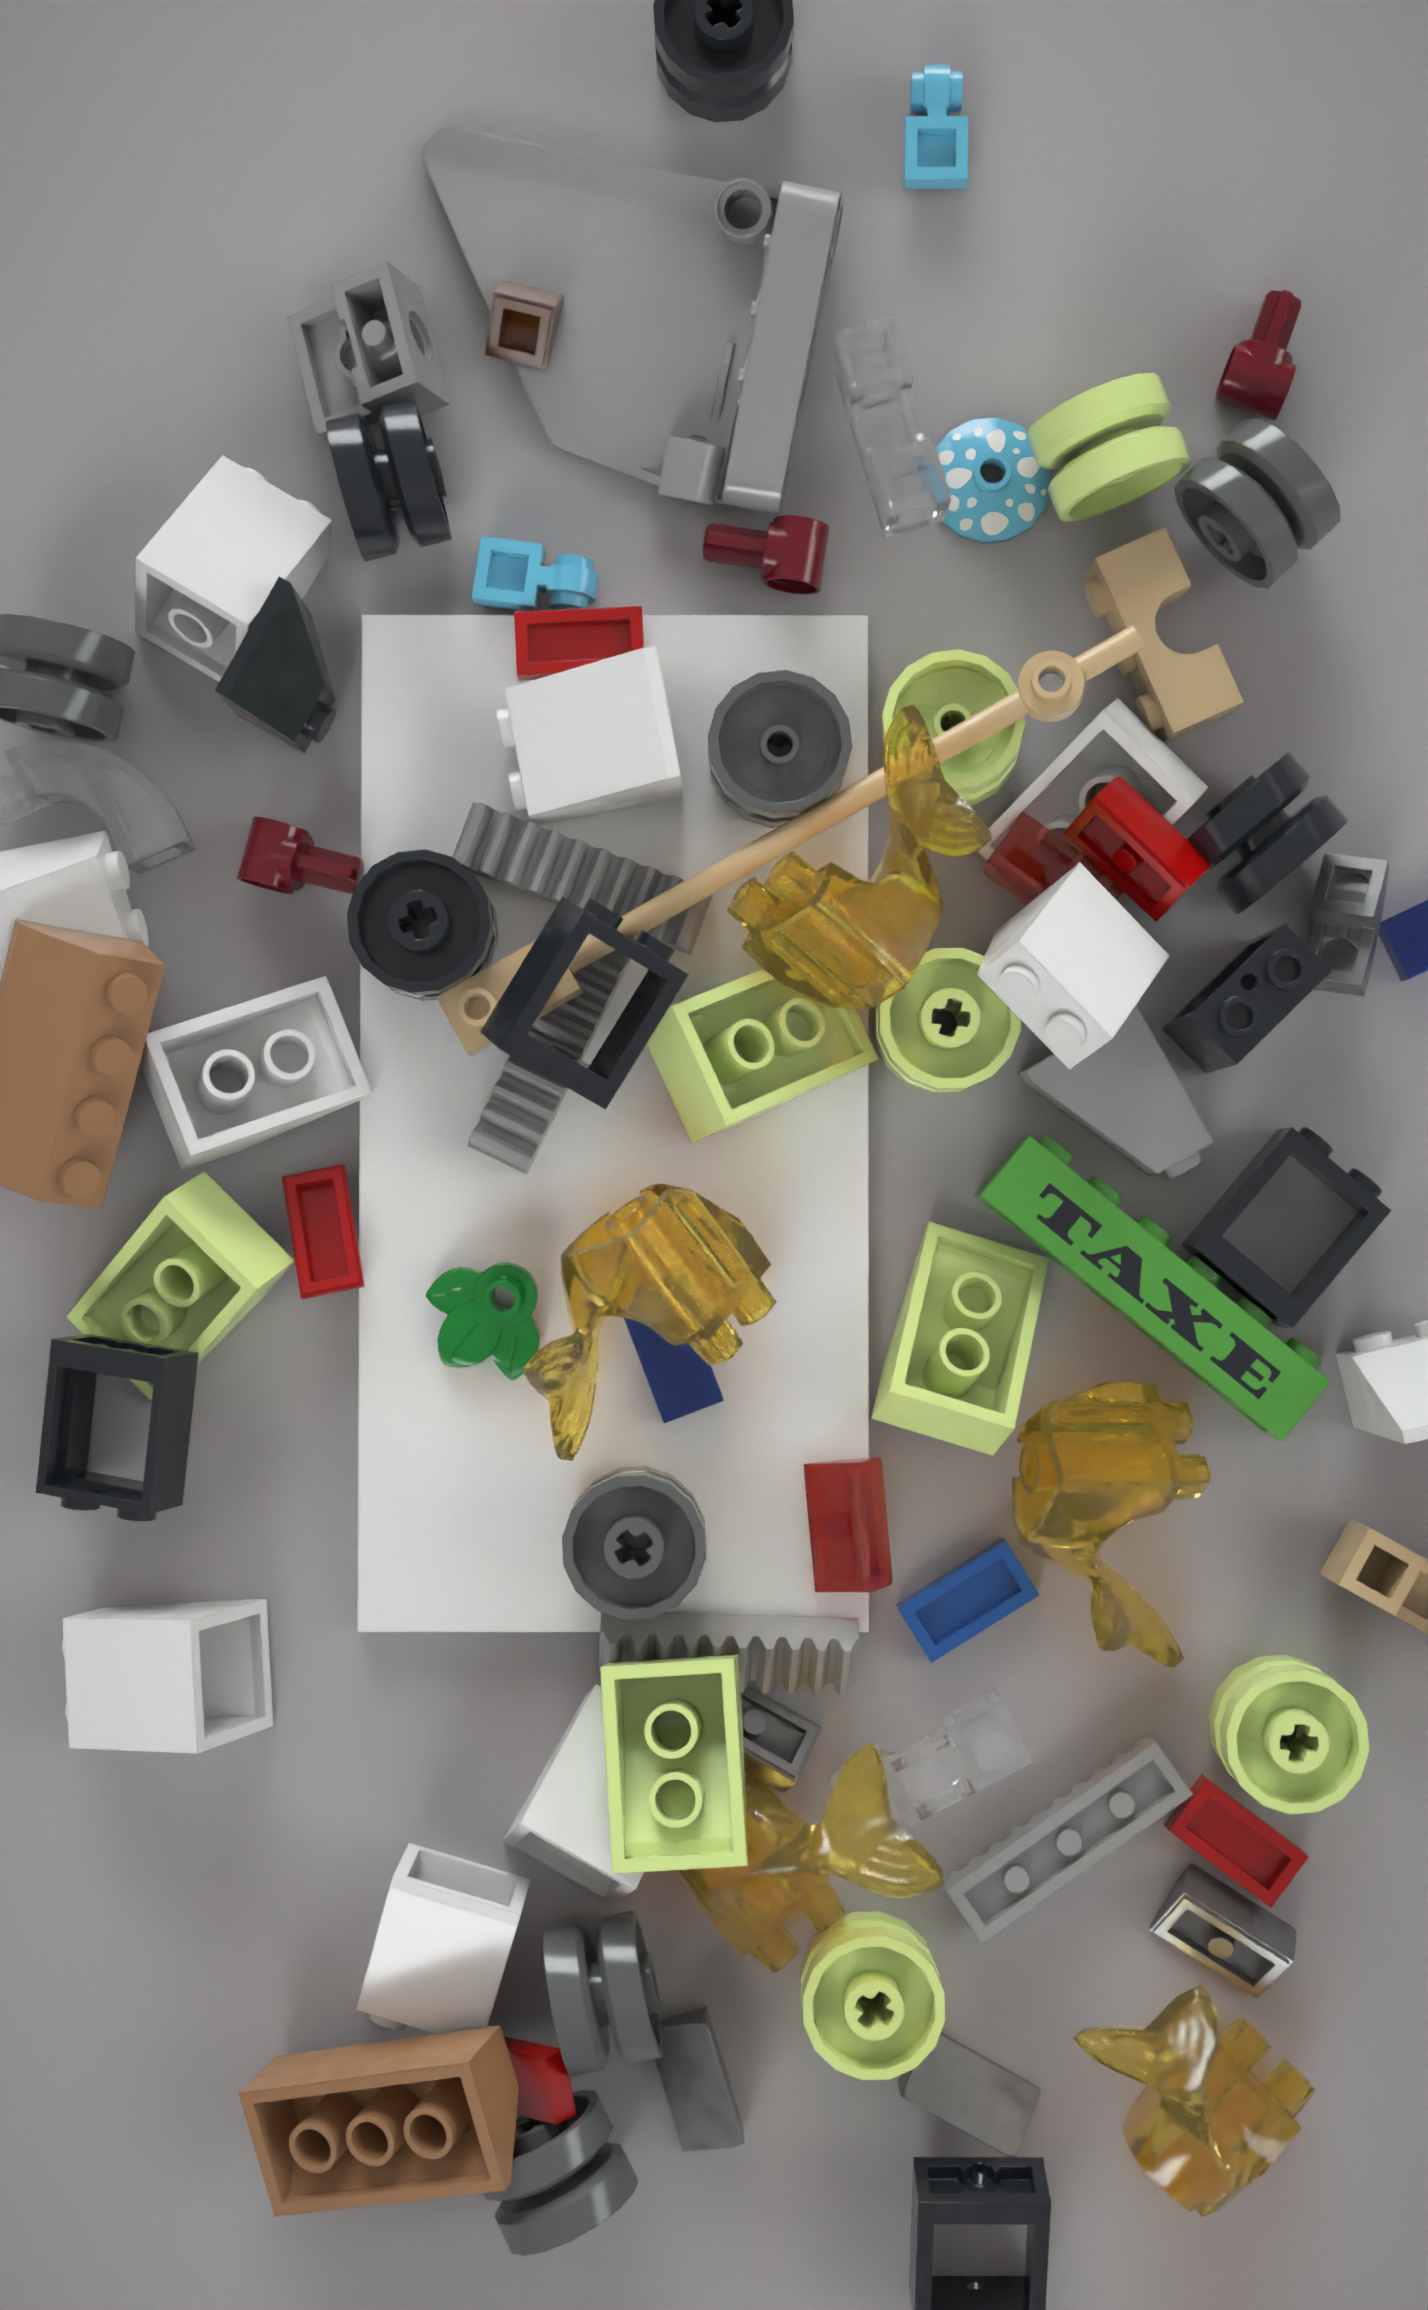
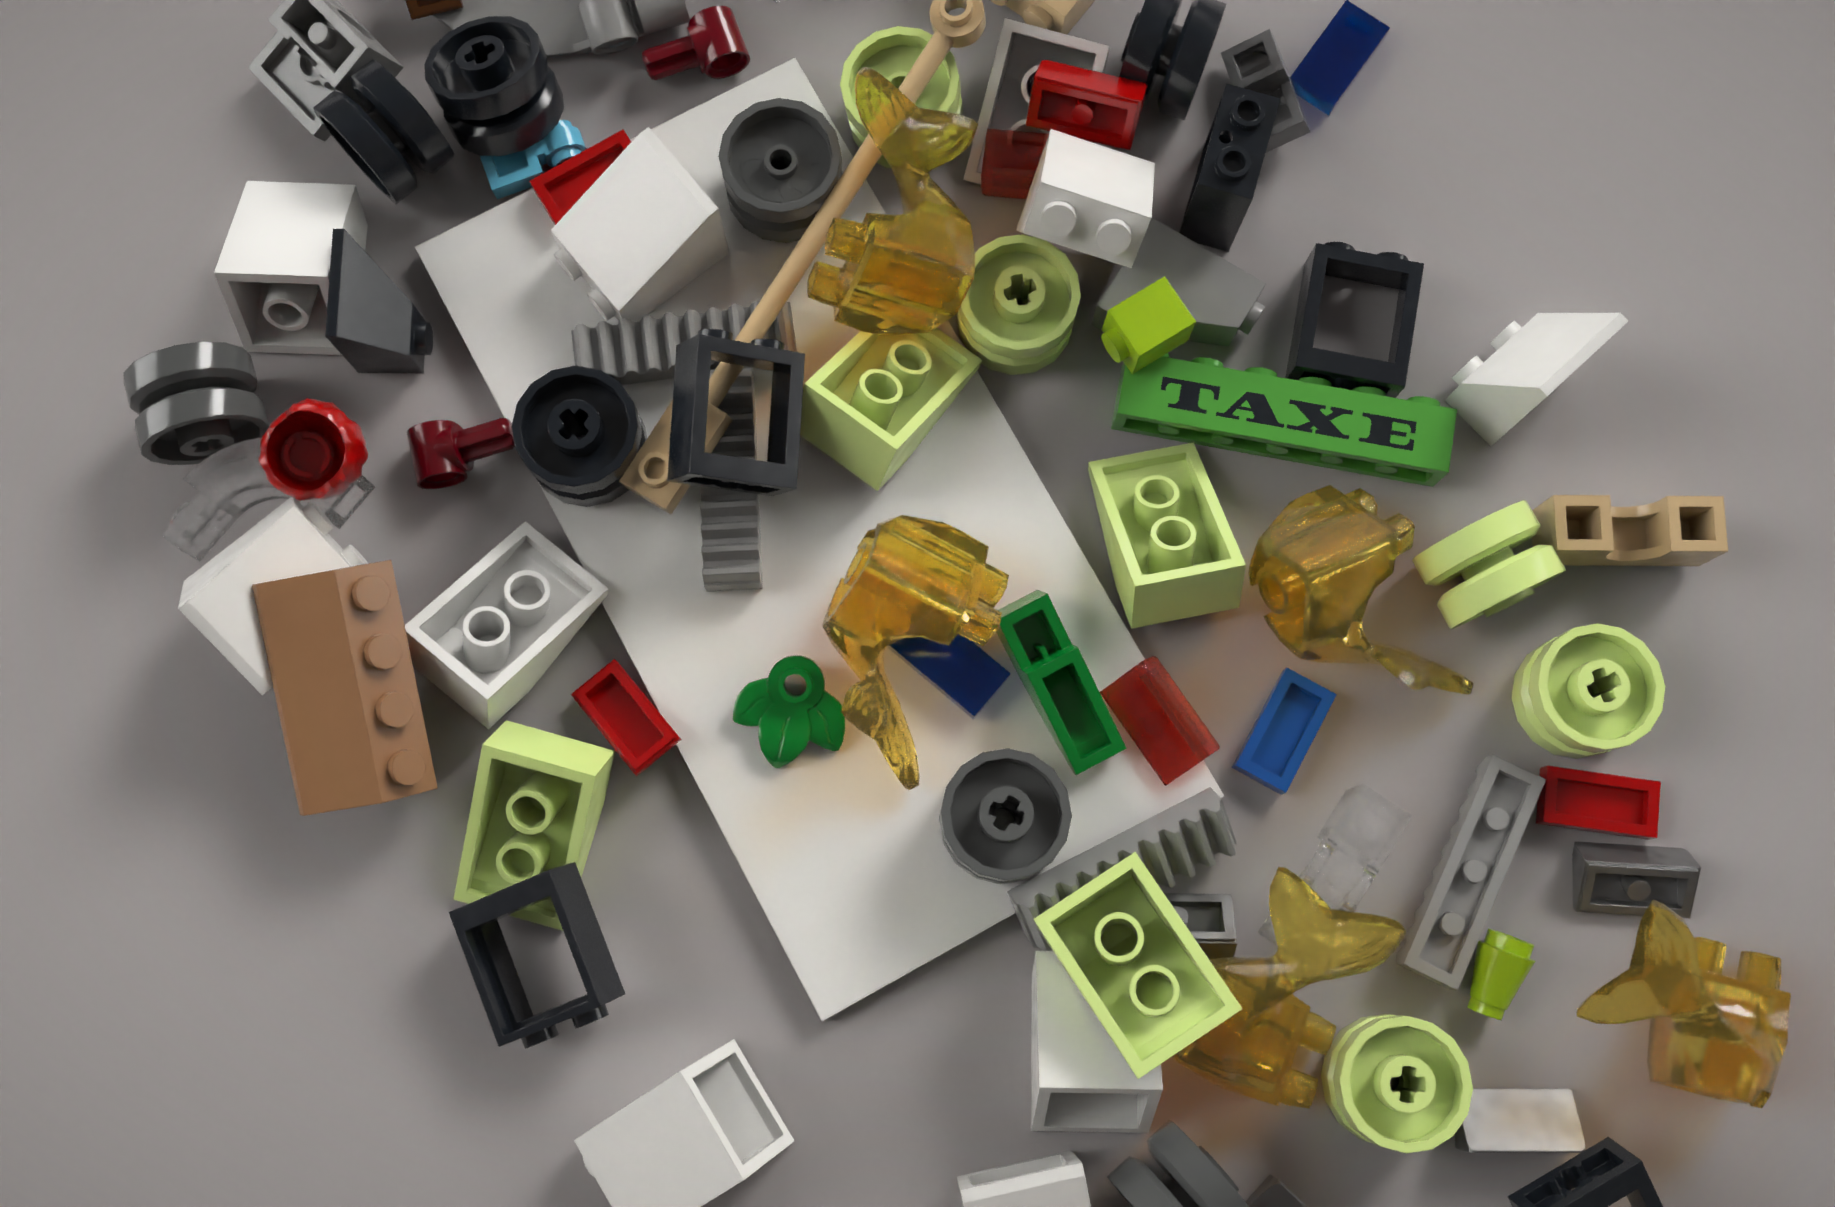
camera: 30 degrees left, 10 degrees down
(144, 804) = (313, 451): none -> red hair
(530, 488) = (494, 85): none -> black wheel
(766, 1433) = (1058, 682): none -> green slope
(1036, 1947) = (1498, 972): none -> lime cone
(1057, 1127) = (1147, 326): none -> lime brick
(1261, 1564) = (1488, 565): none -> yellowish green wheel

